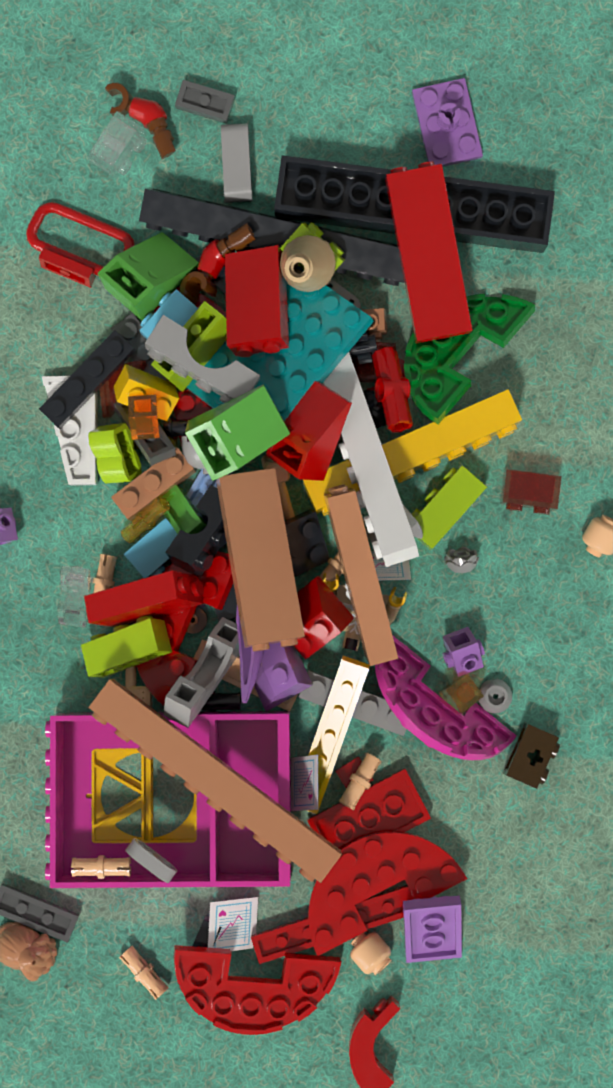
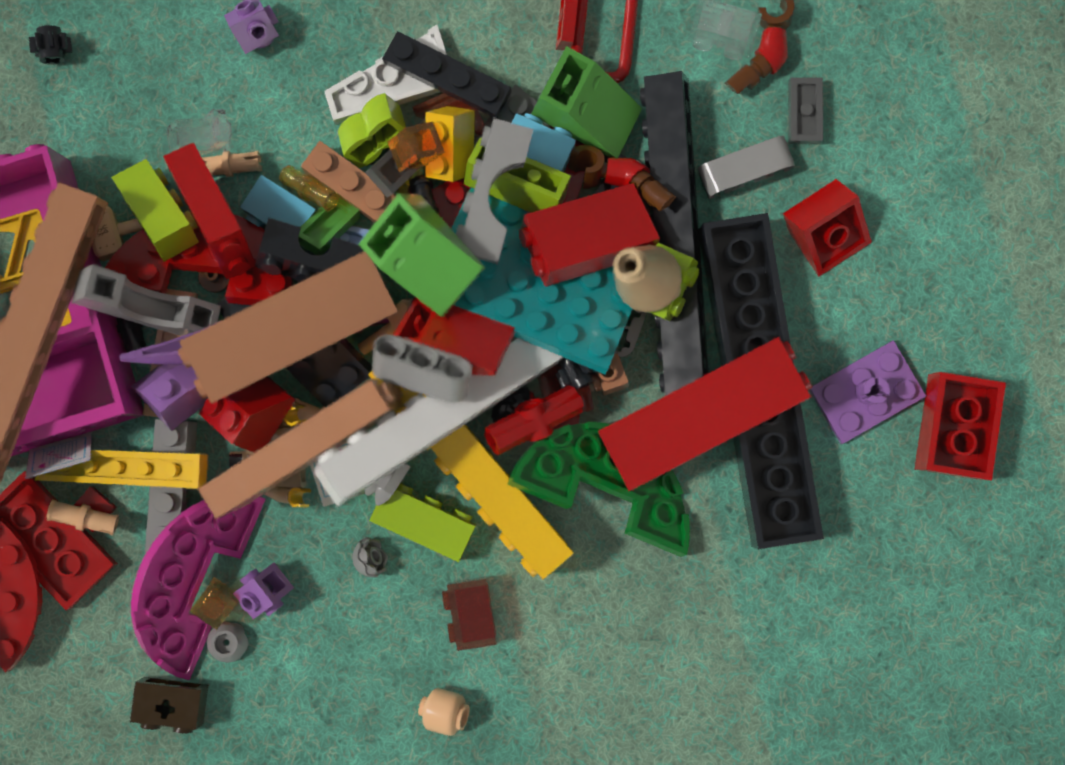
camera: 65 degrees right, 0 degrees up
(304, 112) = (828, 226): none -> red slope
(328, 458) = (421, 368): none -> light grey beam
(497, 58) = (960, 426): none -> red brick

